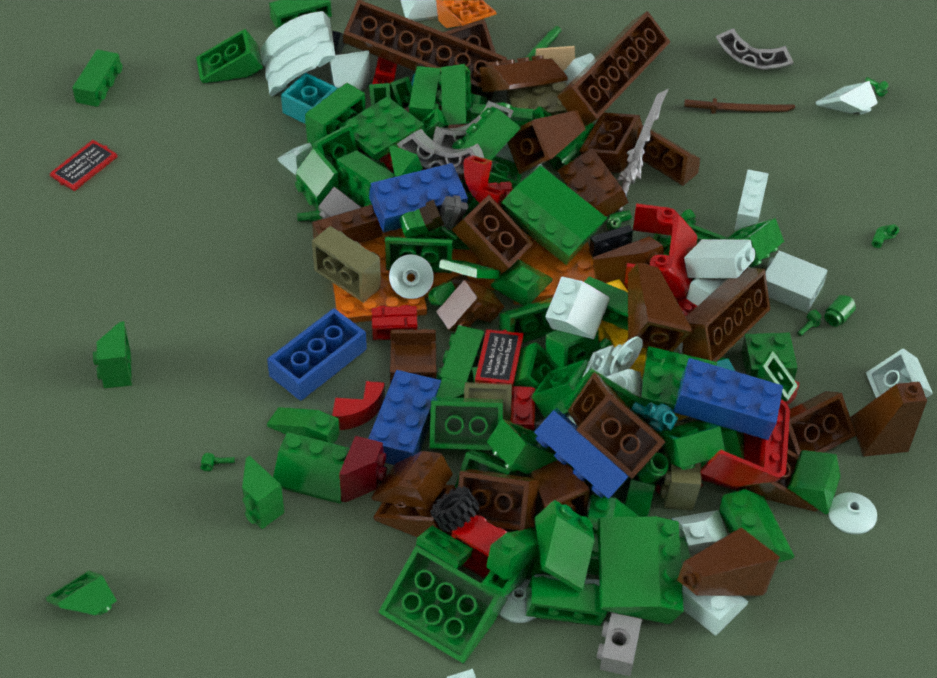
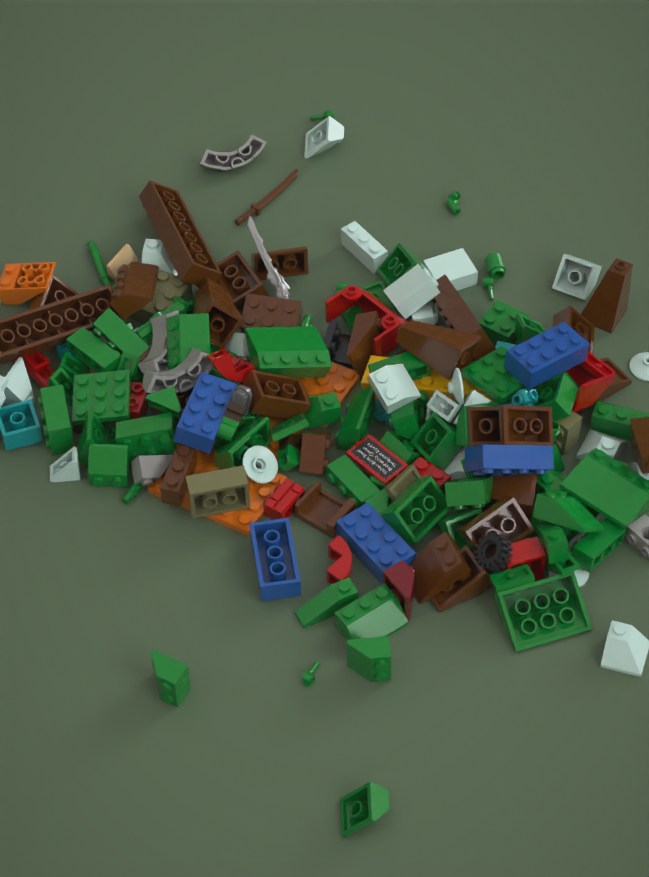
camera: 50 degrees left, 0 degrees up
(816, 478) = (618, 361): green slope -> none

